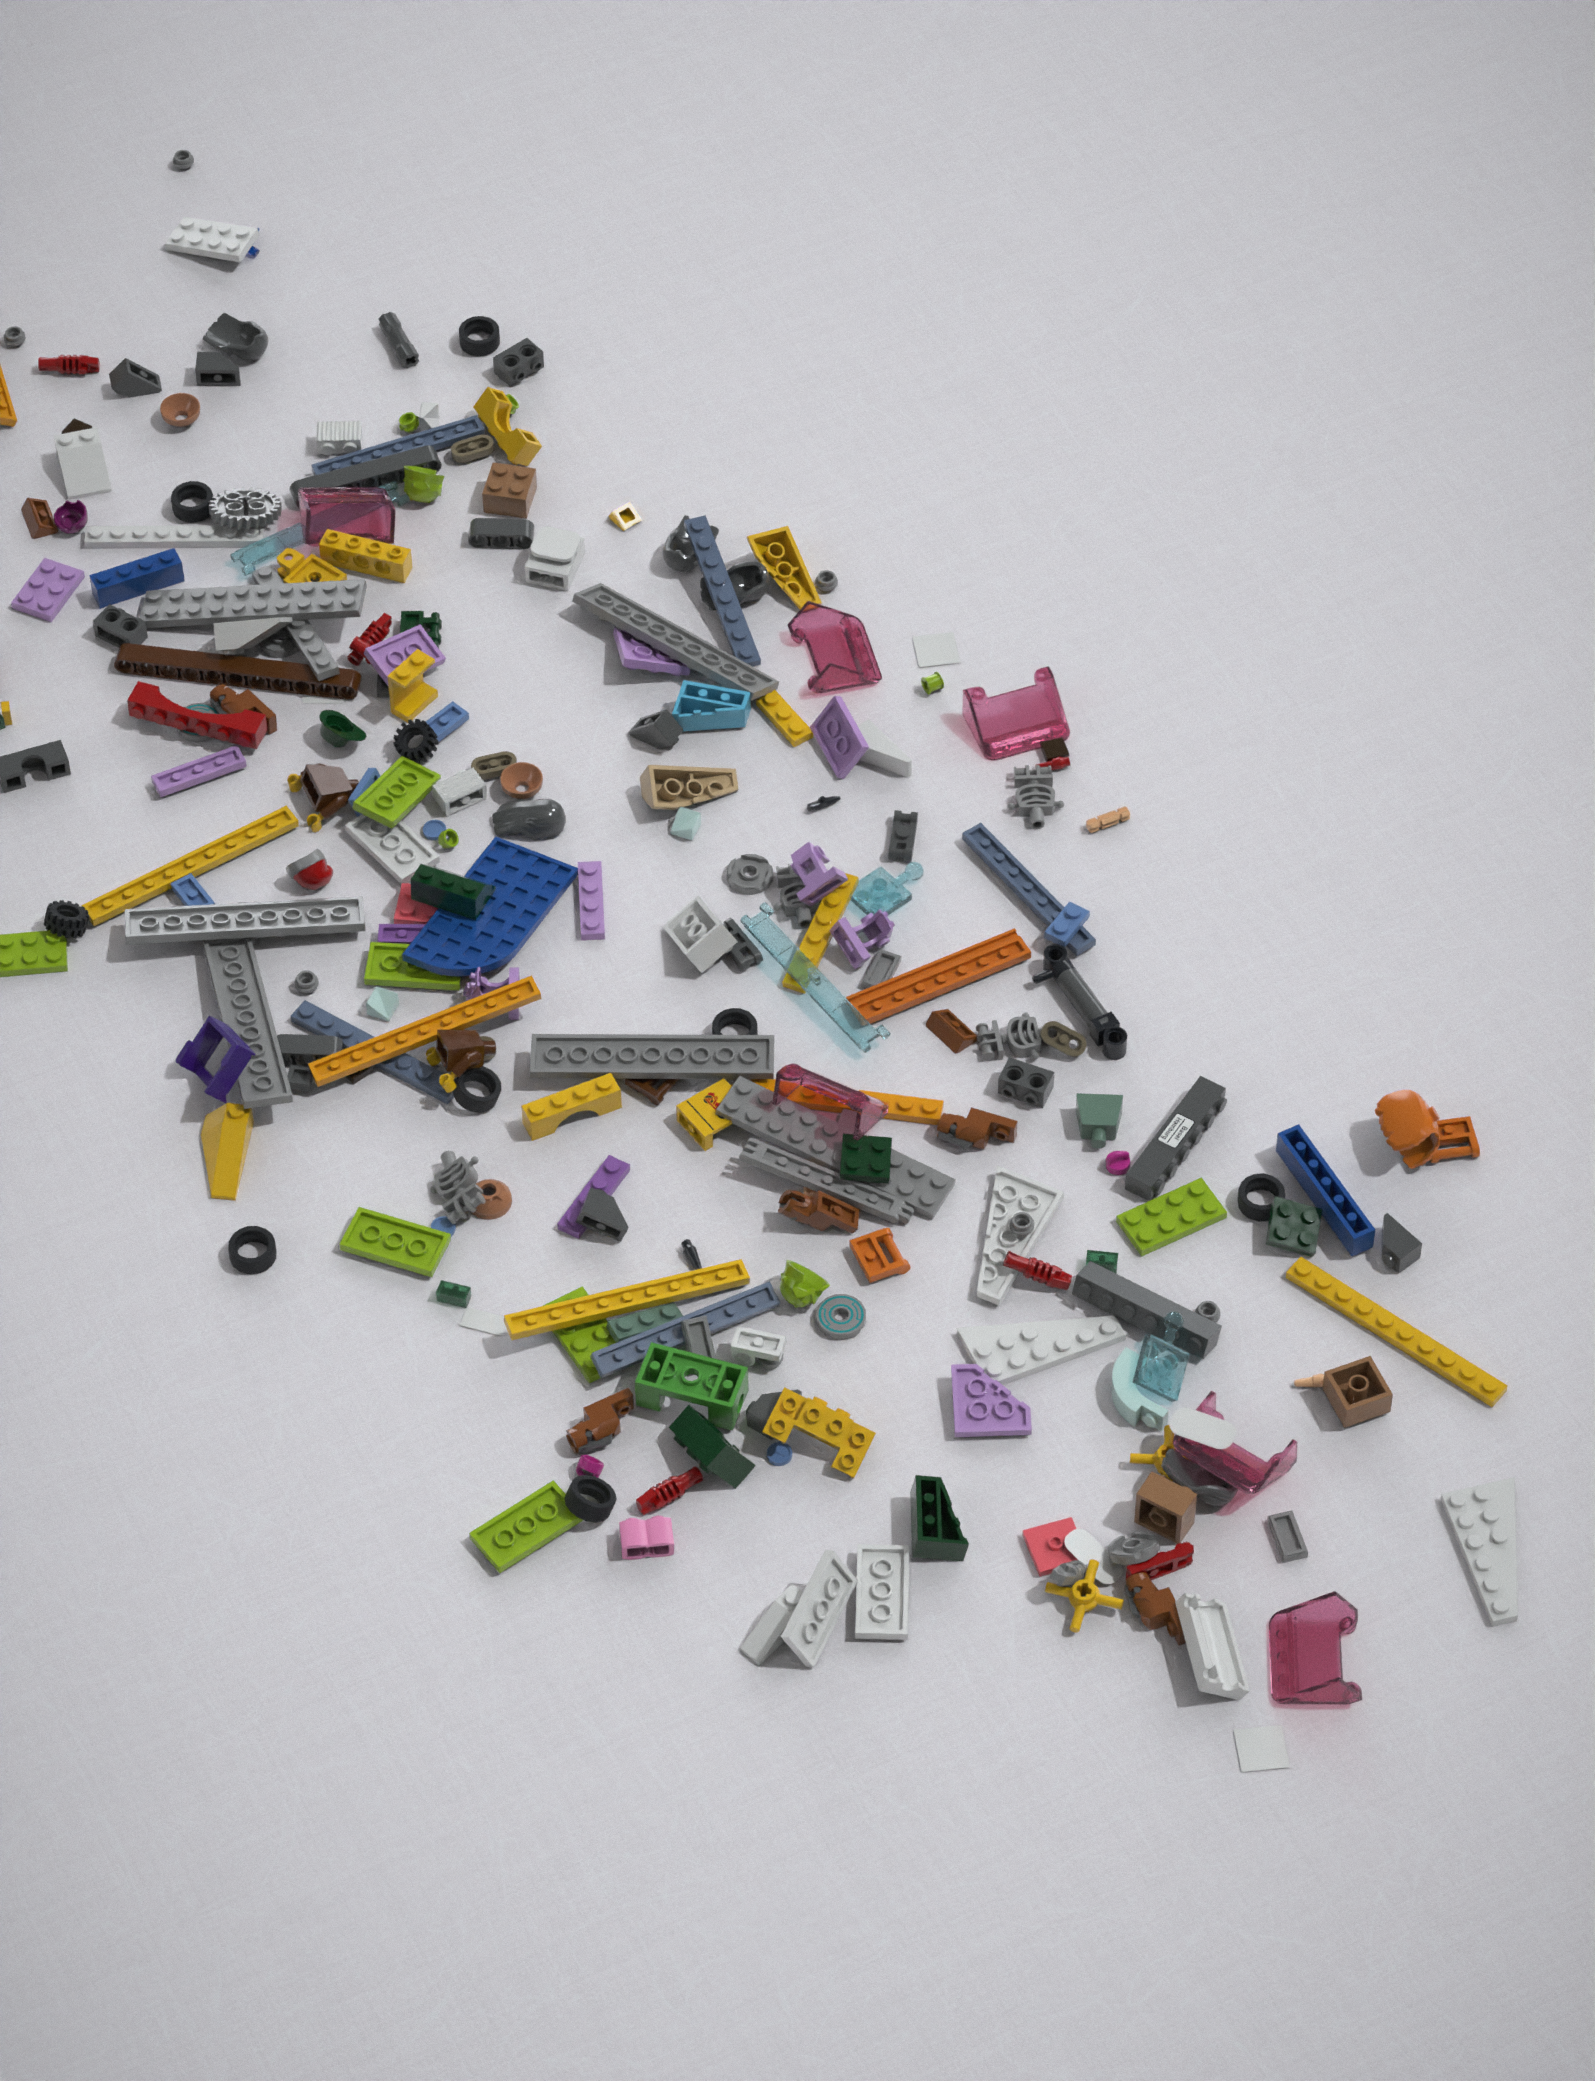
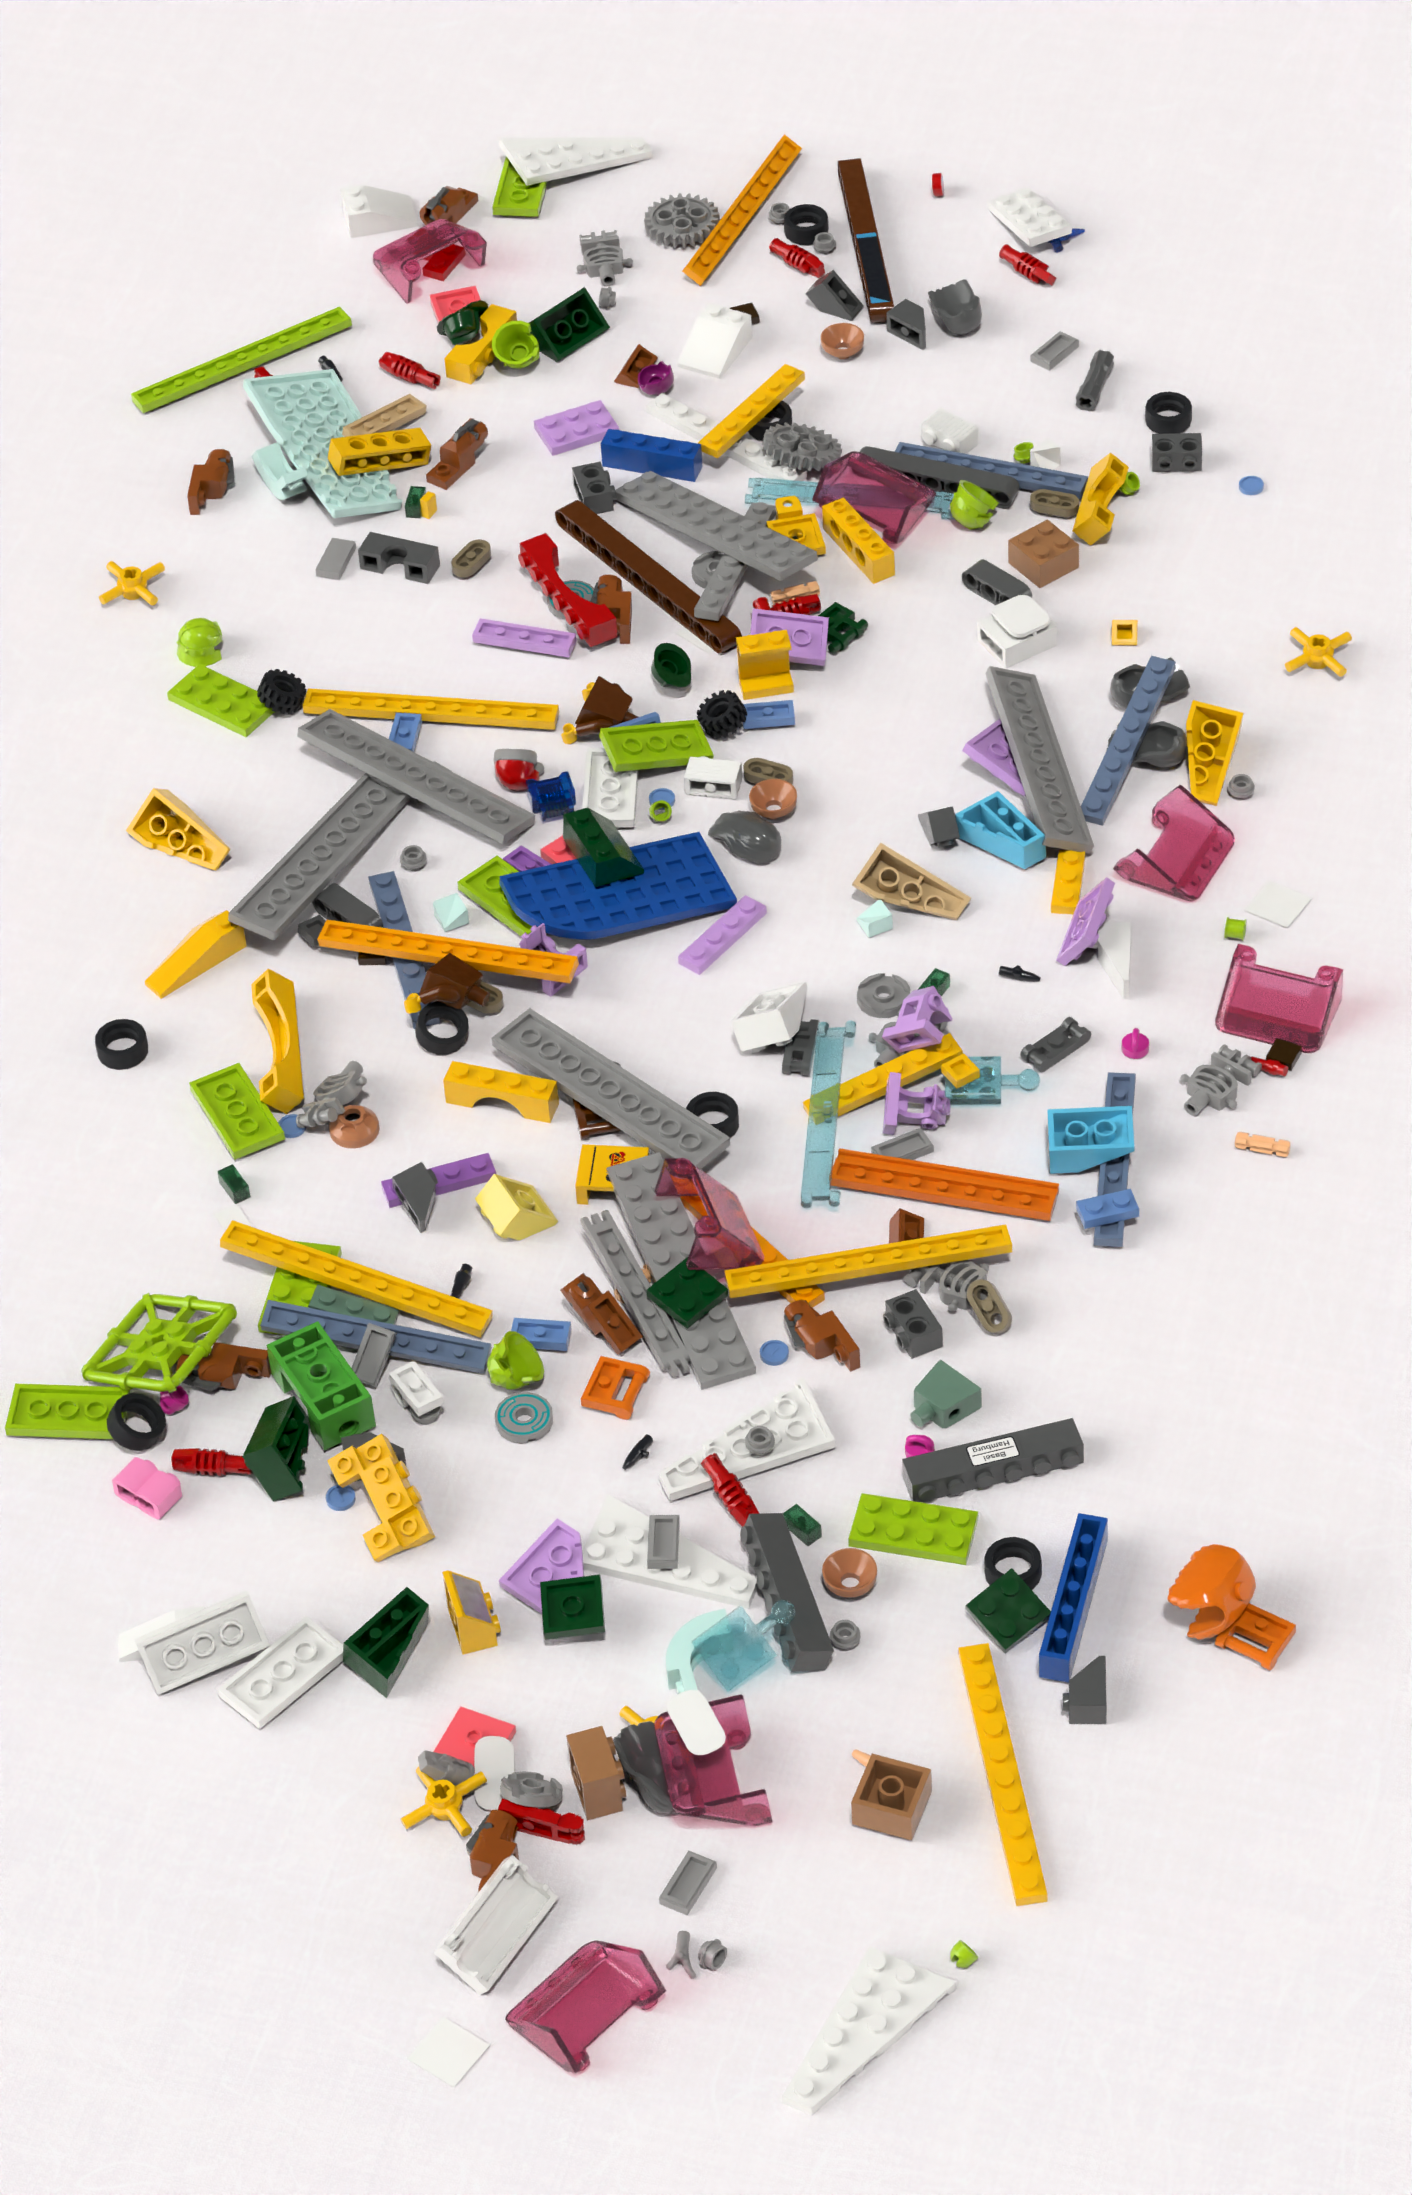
camera: 45 degrees right, 5 degrees down
(45, 323) = (802, 214): none -> black tyre
(75, 341) = (824, 242): none -> light grey plate
(87, 735) = (471, 558): none -> dark tan plate
(105, 1071) = (175, 828): none -> yellow wedge
(106, 322) = (865, 239): none -> reddish brown beam
(112, 249) = (938, 184): none -> red tile
(180, 501) = (751, 410): none -> yellow plate
(183, 159) = (1082, 142): light grey plate -> none
(198, 1052) = (253, 866): dark purple piece -> none
(241, 635) = (675, 544): white slope -> none
(251, 277) = (1027, 265): none -> red hinge
(341, 333) = (1054, 350): none -> light grey tile
(358, 876) = (551, 796): none -> clear blue piece
(359, 623) = (794, 591): none -> light nougat axle
(399, 1191) = (276, 1003): none -> yellow arch
(529, 1429) = (159, 1343): none -> lime plate
(591, 358) = (1251, 485): none -> medium blue piece
(674, 1181) = (514, 1208): none -> light yellow slope
(775, 454) = (1318, 651): none -> yellow bar
(779, 846) = (939, 980): none -> clear green piece
(795, 1249) = (544, 1333): none -> medium blue plate
(871, 892) = (960, 1071): none -> yellow plate
(941, 1287) = (638, 1451): none -> black helmet
(952, 1163) = (774, 1352): none -> medium blue piece
(954, 803) = (1135, 1045): none -> dark pink tile
(957, 1060) = (868, 1261): none -> yellow plate
(963, 1467) = (470, 1613): none -> yellow slope
(1003, 884) = (1088, 1137): none -> medium azure slope
(1029, 1413) = (572, 1607): none -> dark green plate
(1034, 1332) = (663, 1541): none -> light grey tile
(1103, 1025) = (1042, 1313): piece -> none
(1171, 1263) = (849, 1564): none -> nougat piece
(1334, 1581) = (682, 1953): none -> light grey bar
(1354, 1568) = (712, 1954): none -> light grey plate
(1499, 1456) = (964, 1954): none -> lime hinge

